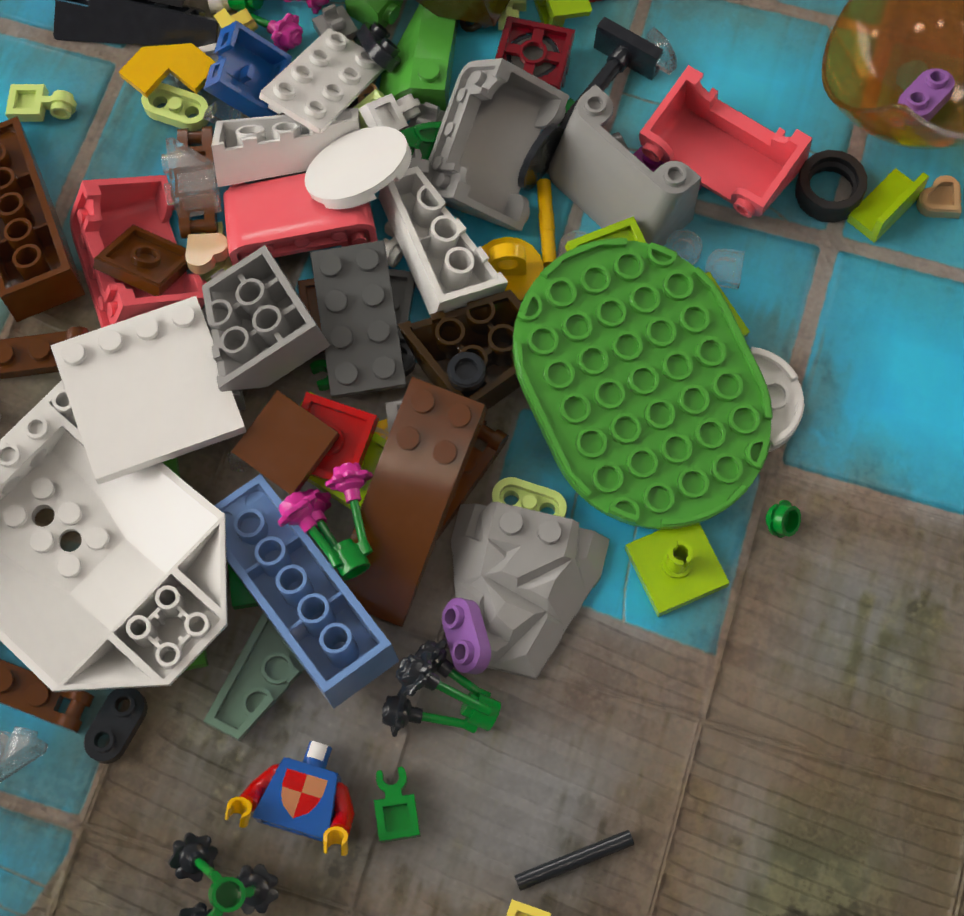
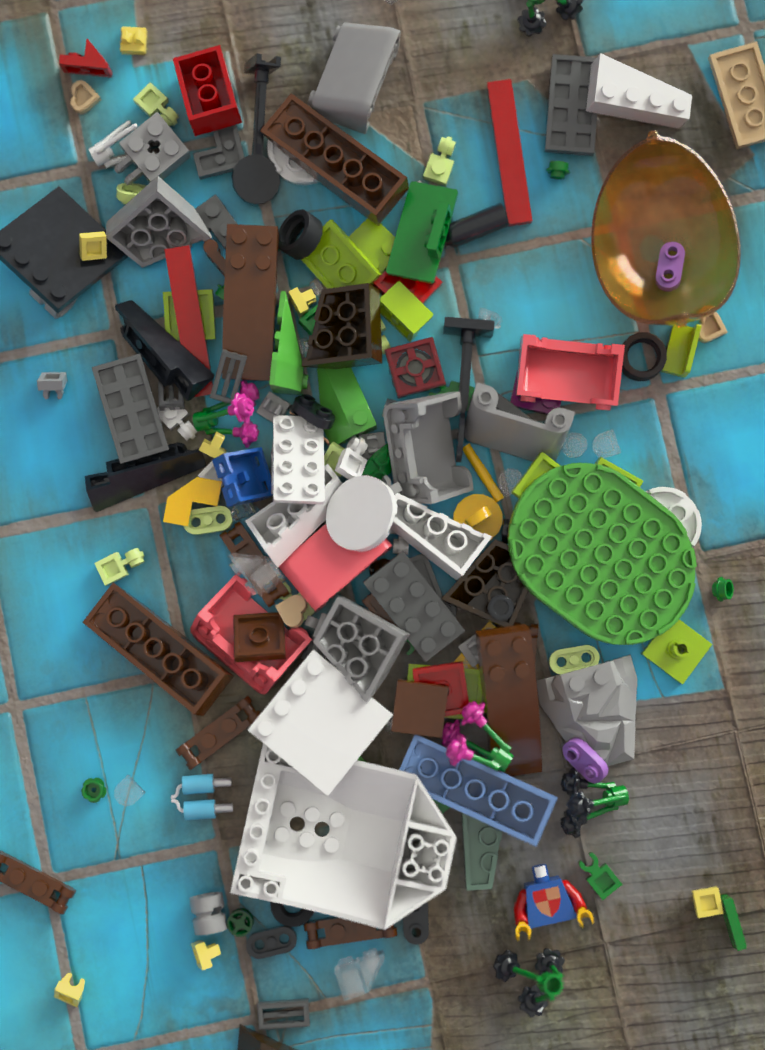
camera: 30 degrees left, 15 degrees up
(574, 860) = (710, 848): black bar -> none

